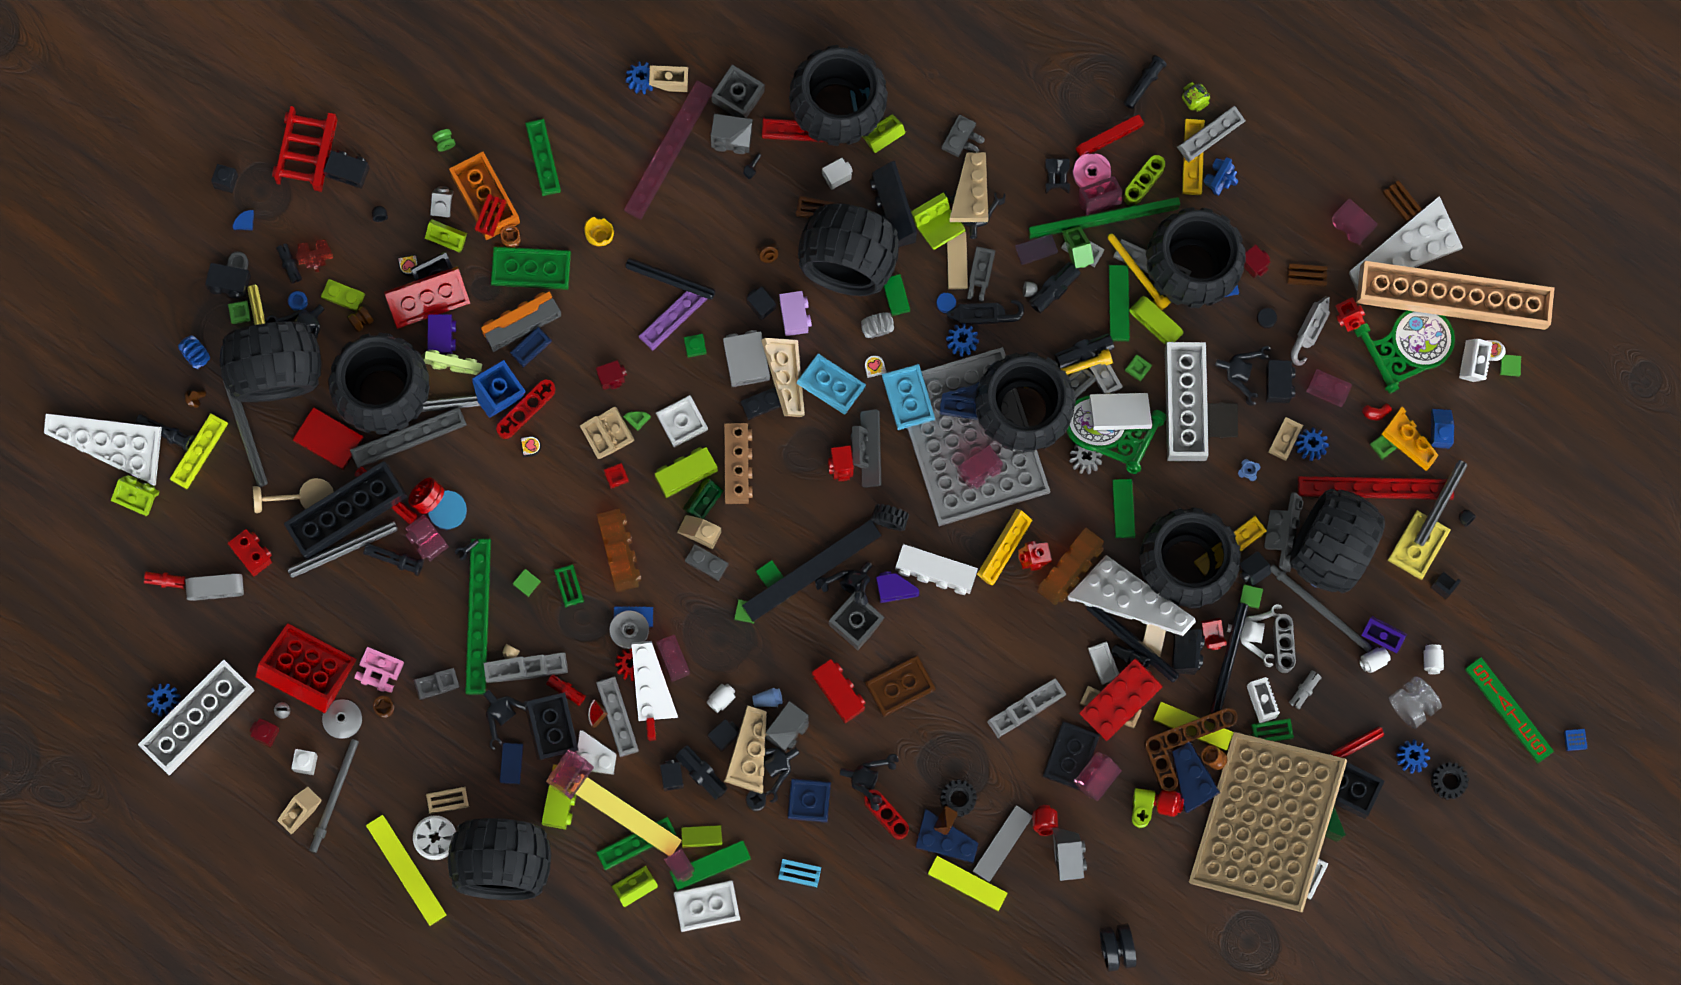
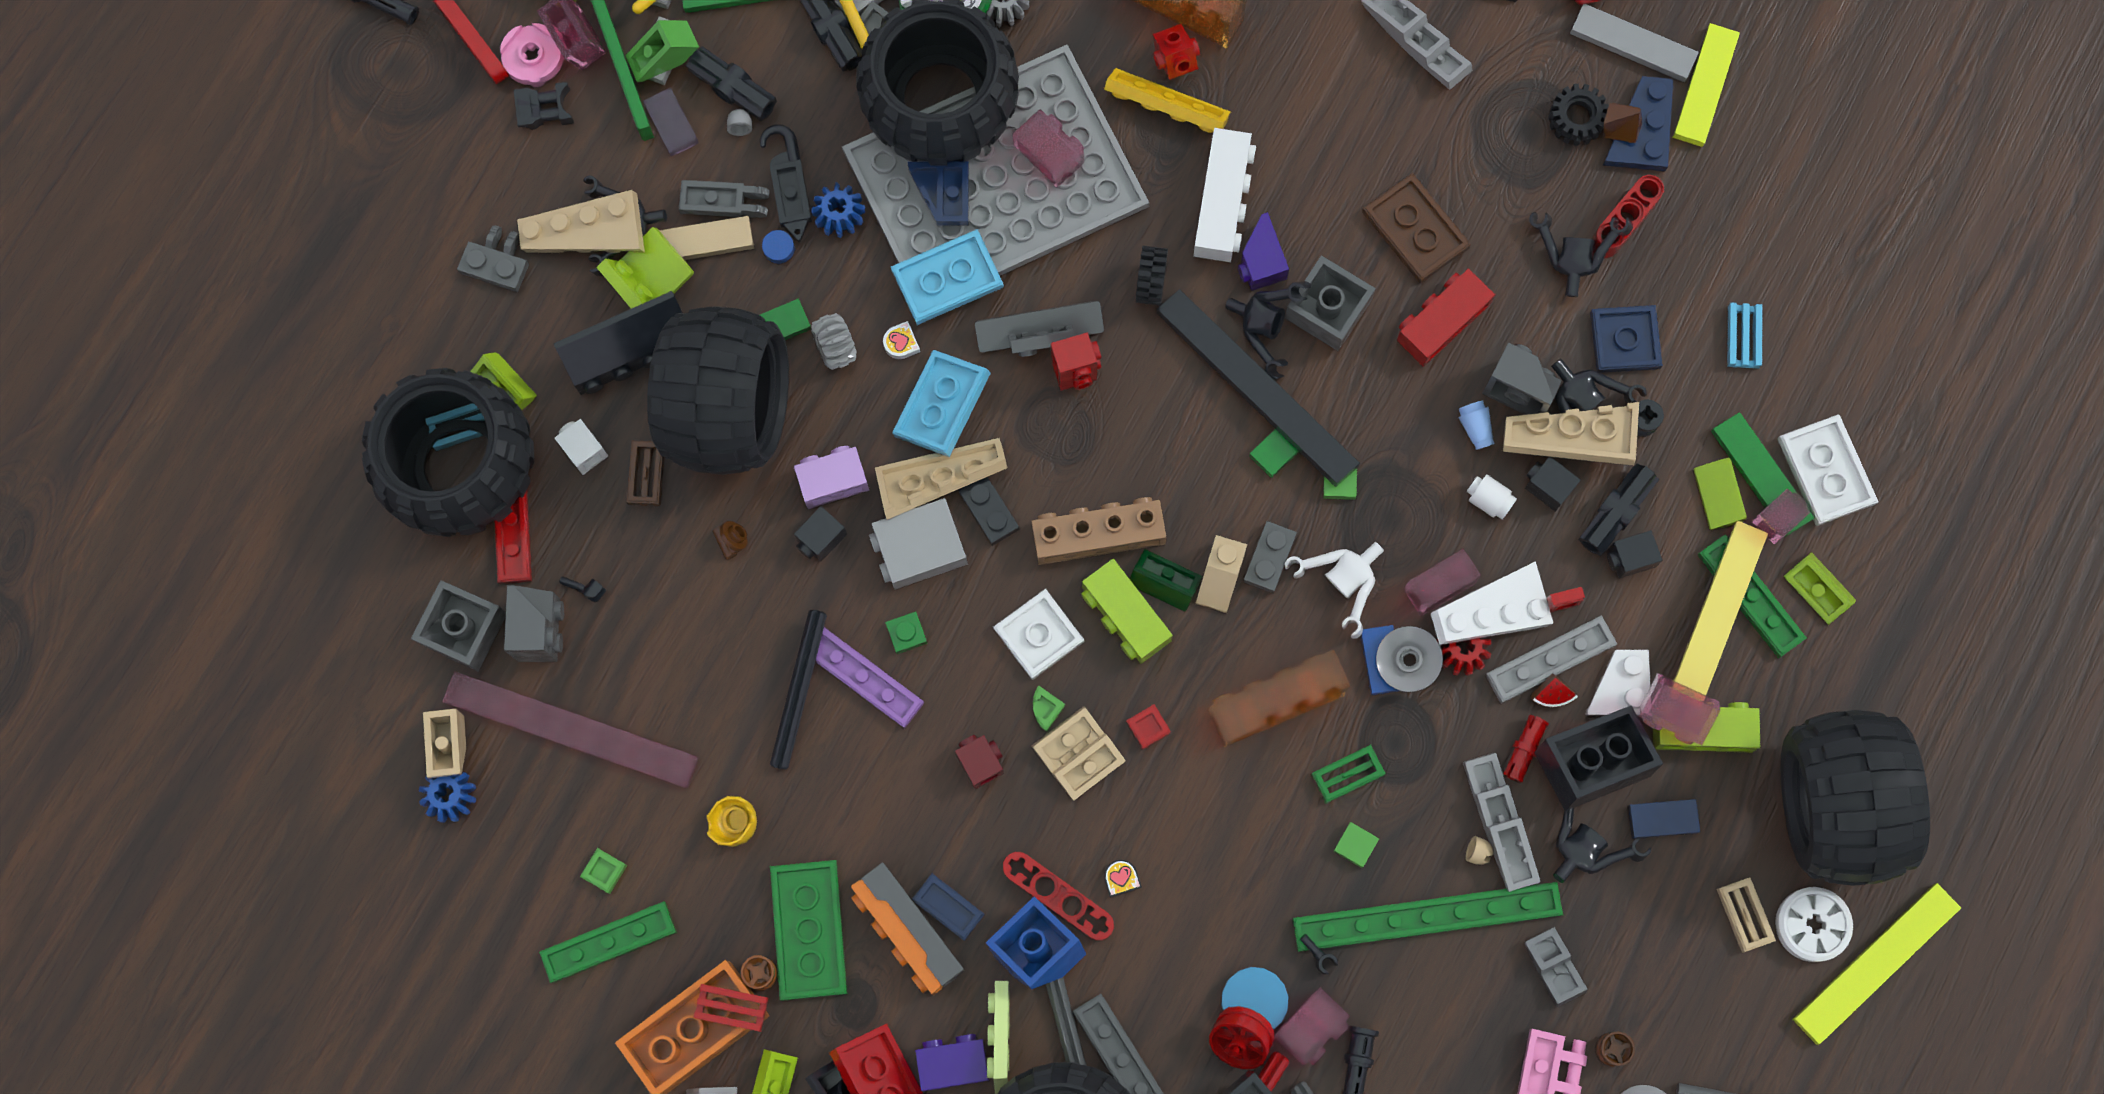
camera: 90 degrees left, 0 degrees up
(584, 159) = (603, 871): none -> bright green tile
(686, 604) = (1347, 576): none -> white piece

